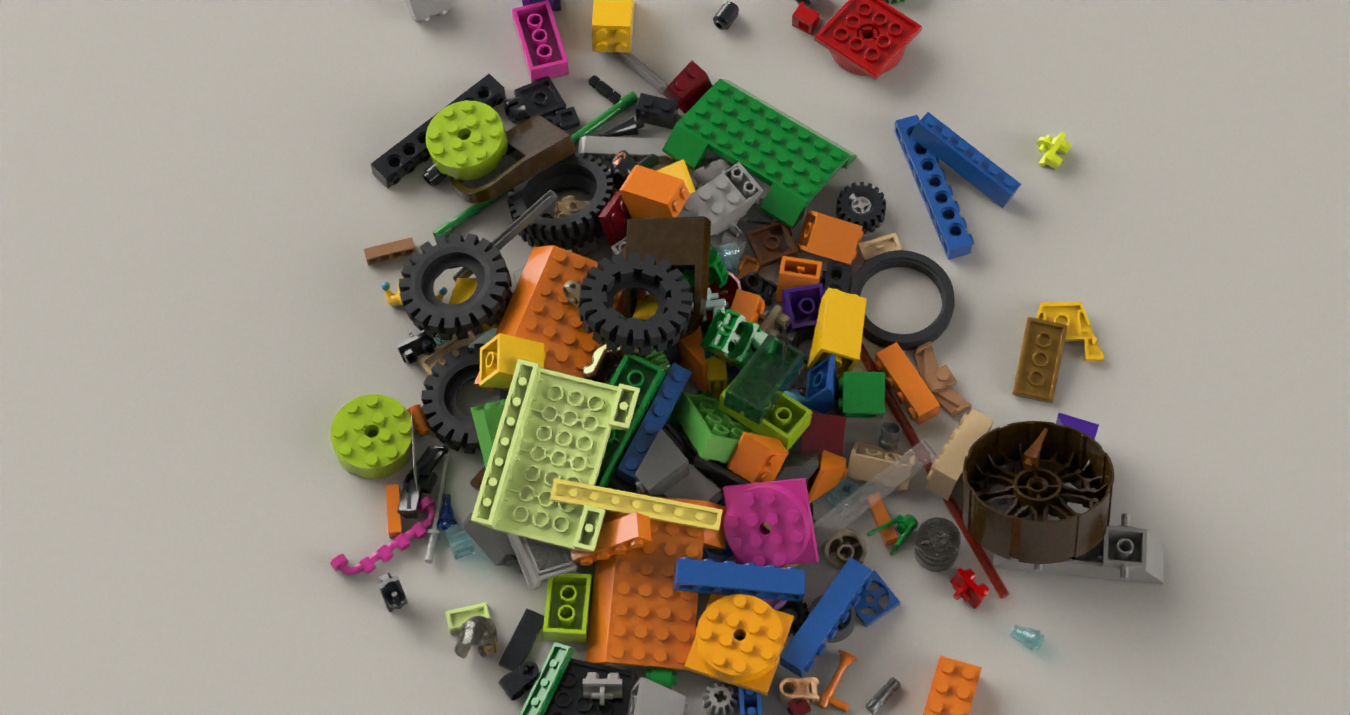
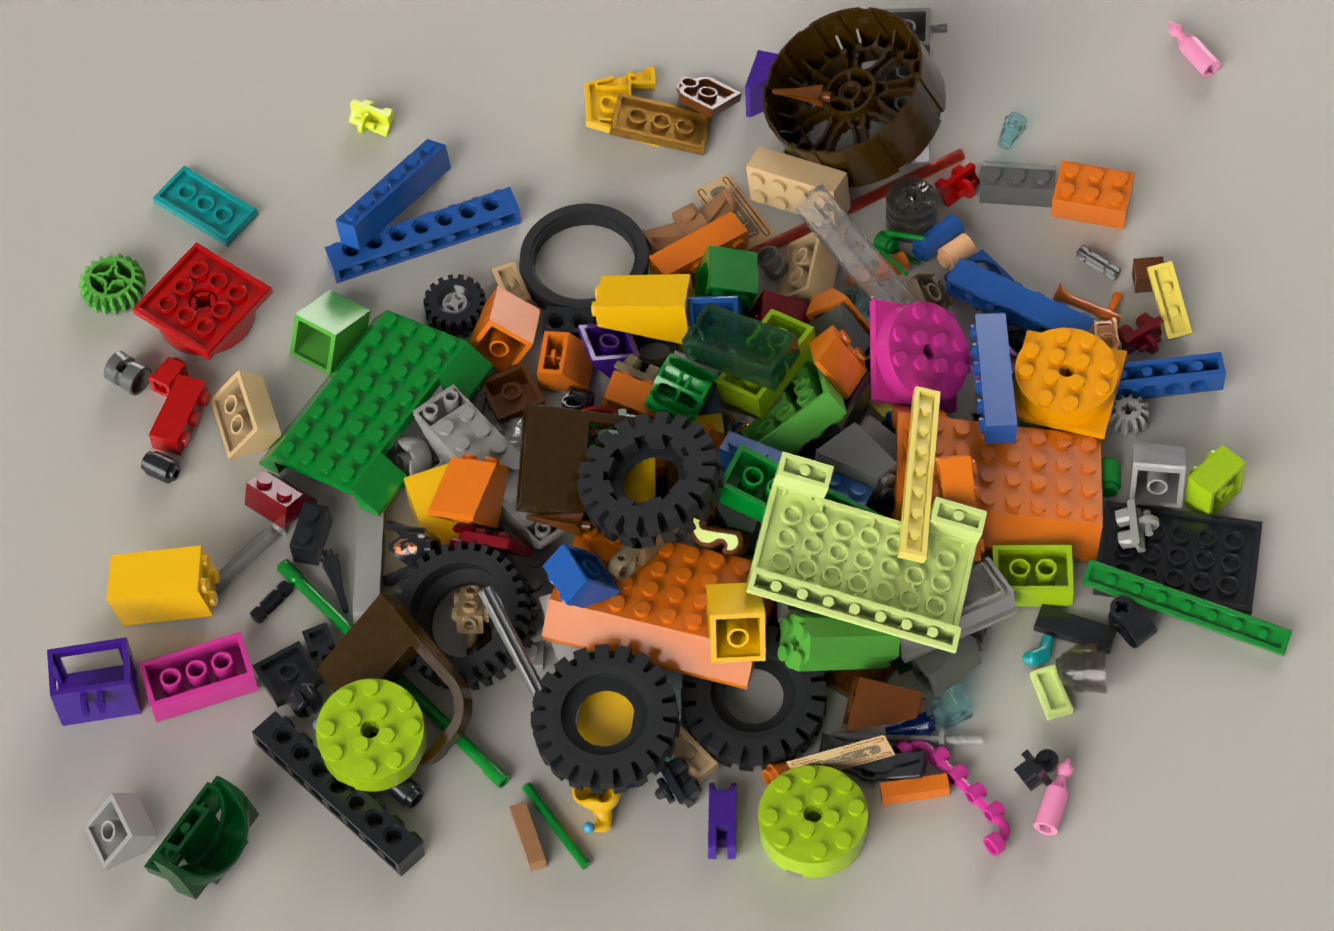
camera: 90 degrees left, 5 degrees down
(369, 608) = (1054, 801): none -> bright pink wheel
(382, 376) = (722, 820): none -> dark purple piece
(384, 277) = (556, 825): none -> green bar
(408, 49) = (201, 842): none -> dark green piece
(457, 483) = (879, 704): none -> reddish brown slope
(501, 613) = (1041, 654): none -> teal arm
(563, 261) = (580, 576): none -> blue slope
(768, 69) = (245, 415): none -> tan slope
(771, 26) = (179, 415): none -> red brick
(843, 120) = (327, 330): none -> bright green slope
(896, 580) = (958, 248): none -> light nougat brick
(911, 566) = (937, 237): none -> blue brick
(944, 423) = (746, 212): none -> tan sticker
(971, 40) = (205, 206): none -> teal tile
(973, 634) = (1017, 183): none -> dark grey slope
(1069, 394) = (707, 95): none -> reddish brown plate

